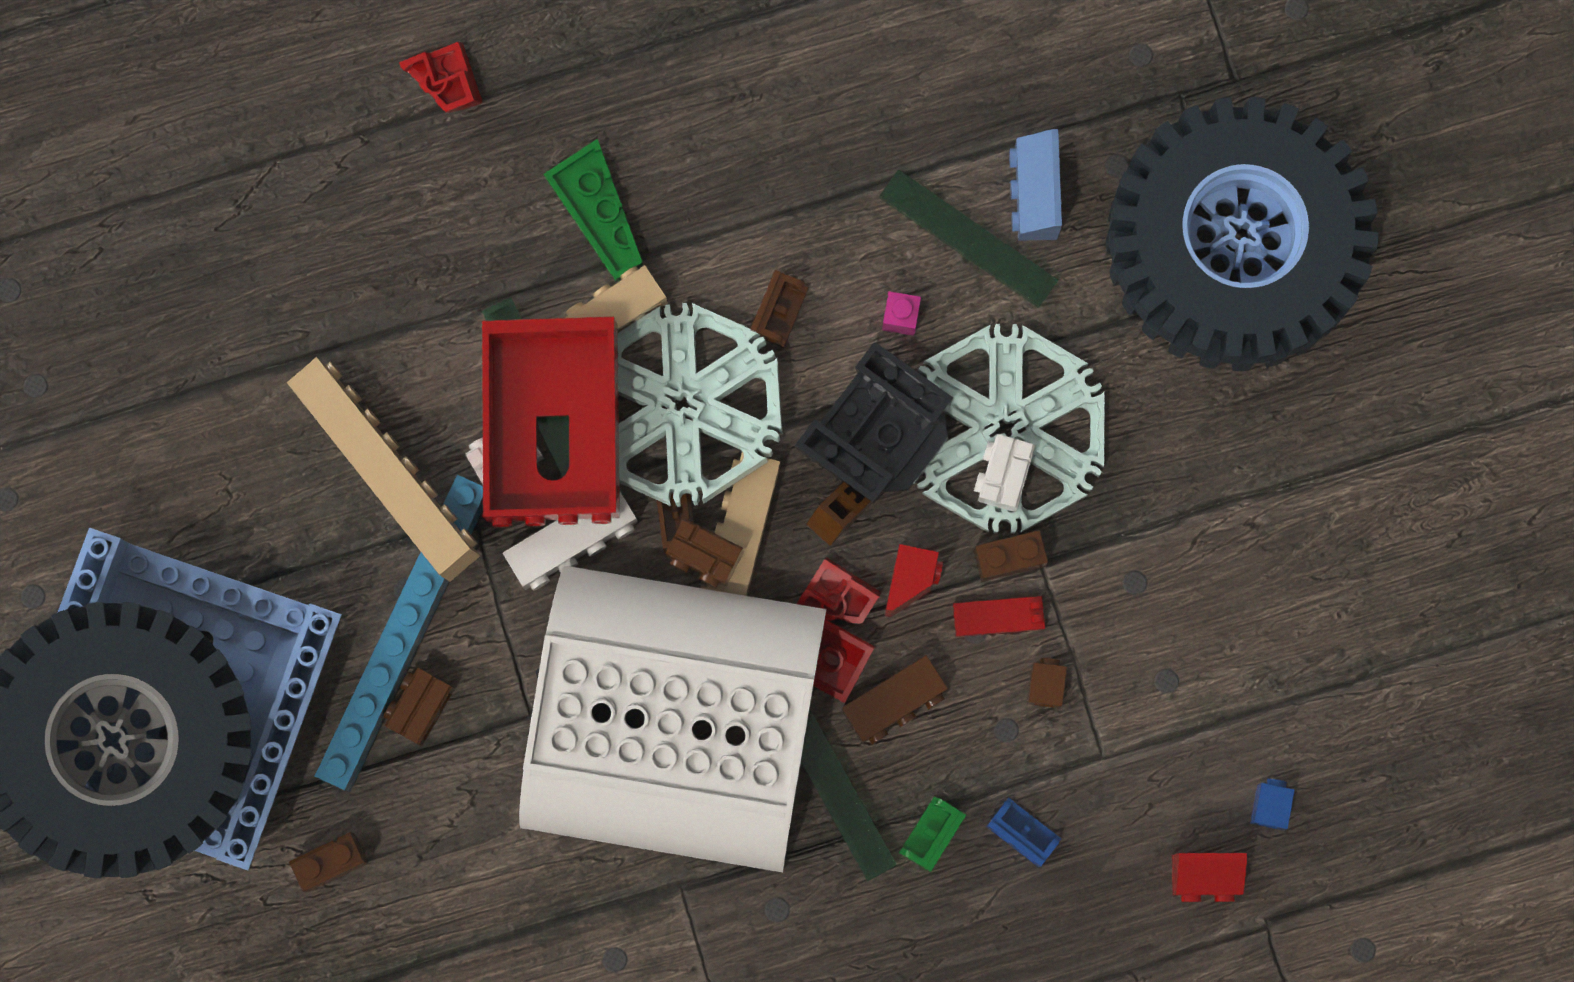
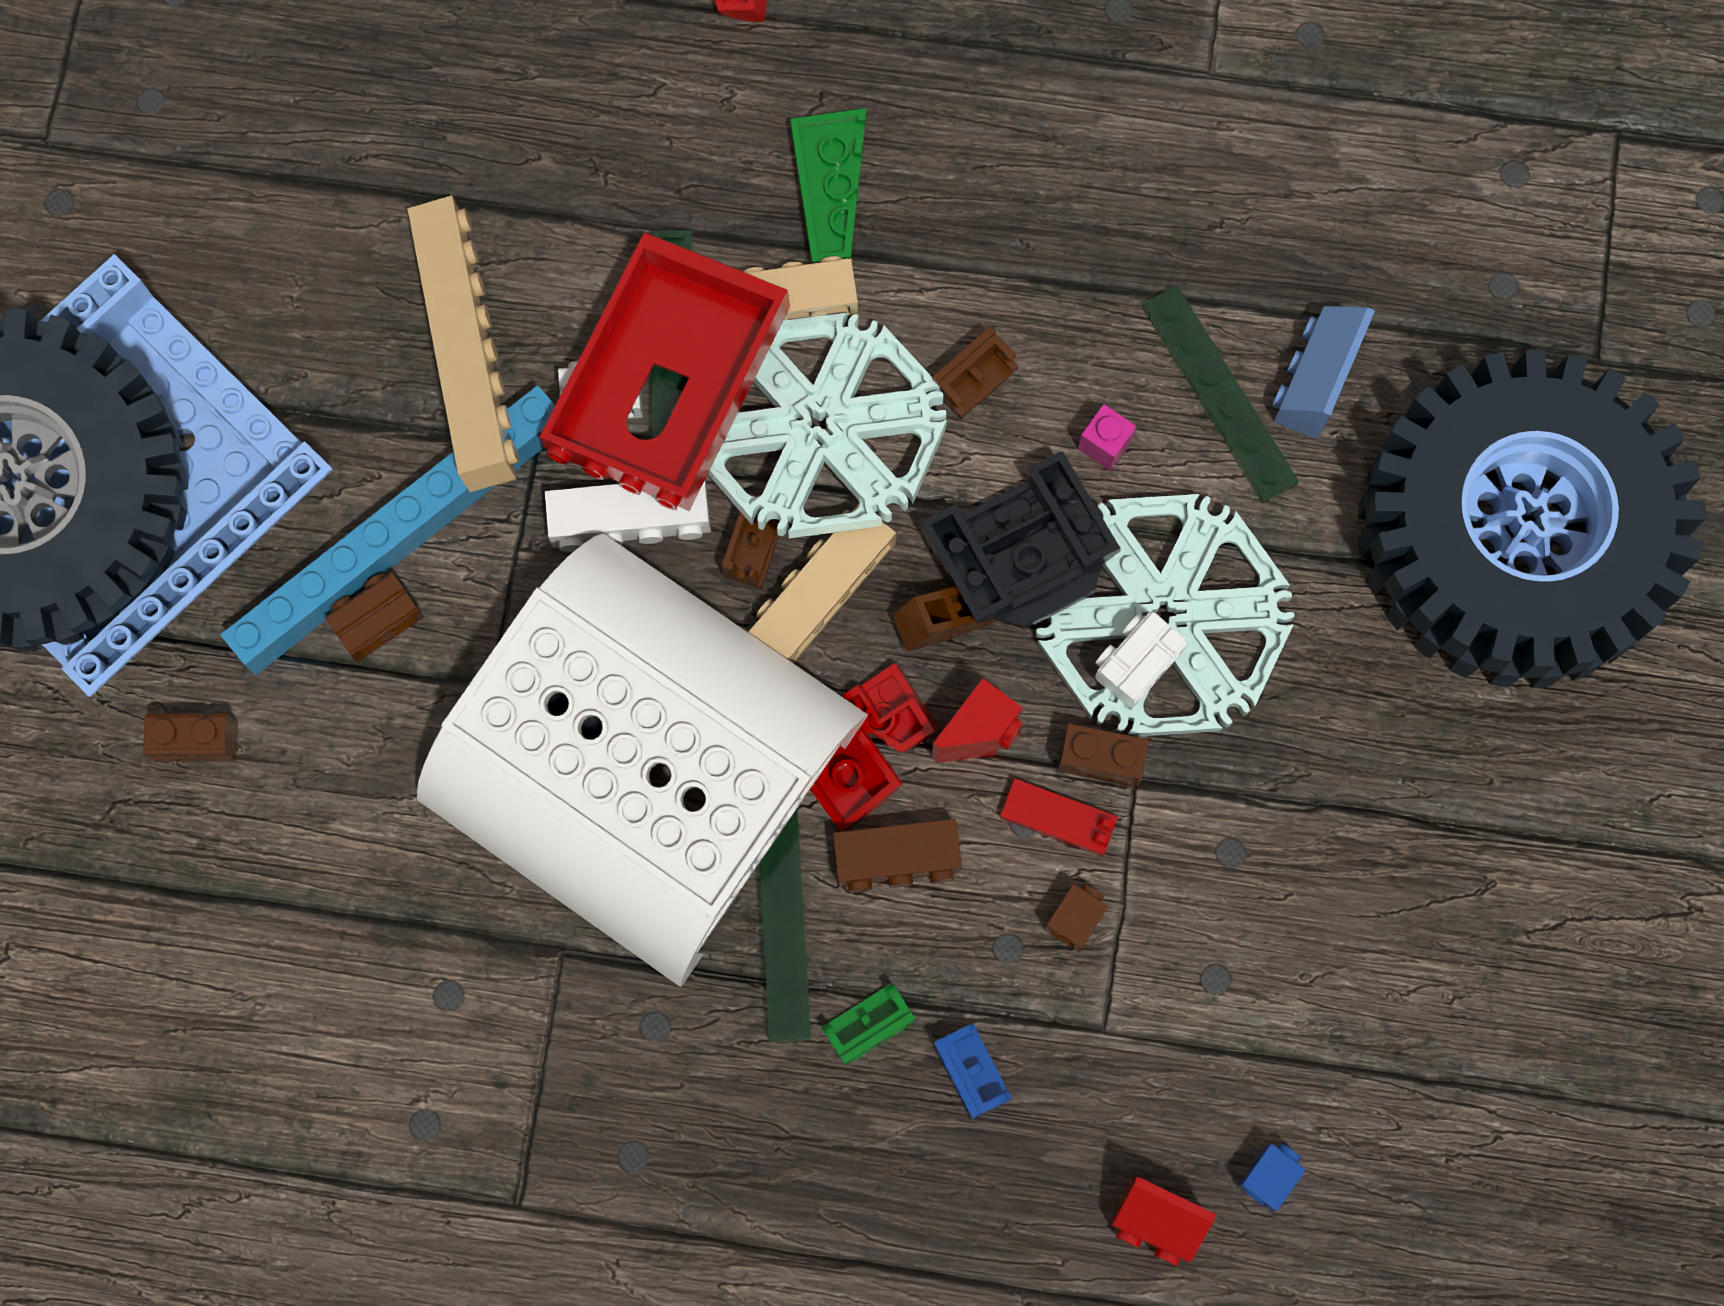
camera: 25 degrees right, 5 degrees down
(705, 553) = (762, 590): reddish brown brick -> none

